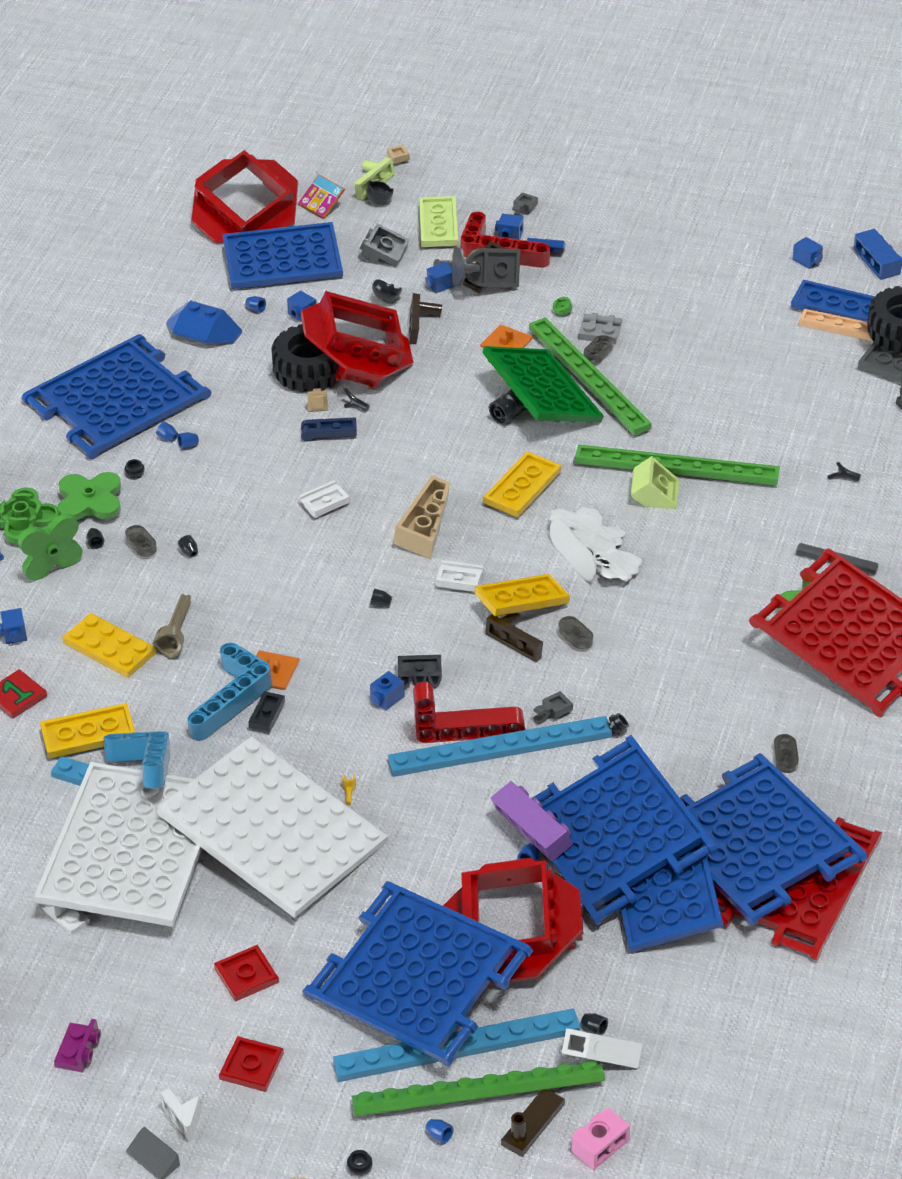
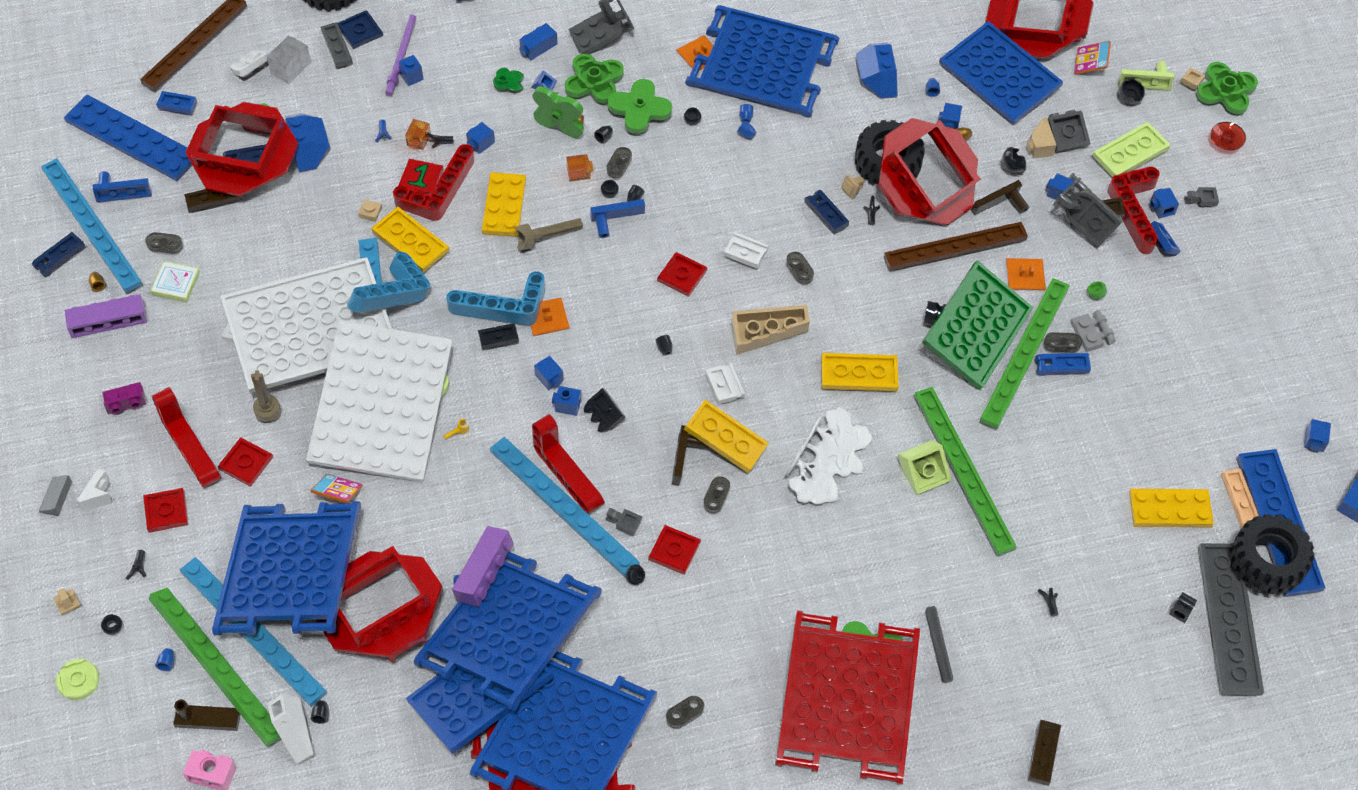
camera: 55 degrees right, 15 degrees up
(19, 749) = (370, 210): none -> tan plate
(55, 435) = (698, 46): none -> orange piece
(61, 691) = (436, 204): none -> red beam
(120, 570) = (579, 167): none -> clear orange brick
(164, 560) = (609, 188): none -> black plate
(183, 1009) = (184, 437): none -> red beam
(192, 574) = (602, 213): none -> blue piece
(198, 921) = (265, 406): none -> dark tan piece
(302, 1113) = (138, 565): none -> black bar
(309, 554) = (682, 274): none -> red tile
(344, 691) = (549, 373): none -> blue brick
(345, 905) = (336, 488): none -> piece
(376, 472) = (801, 269): none -> clear smoke plate
(379, 264) = (1042, 141): none -> tan slope
(426, 140) = (1227, 87): none -> bright green plant
(441, 367) = (955, 246): none -> reddish brown plate
(476, 162) = (1228, 136): none -> clear red dish
(609, 688) = (674, 549): none -> red tile
(619, 358) = (1063, 363): none -> blue plate
(809, 365) = (1171, 508): none -> yellow plate

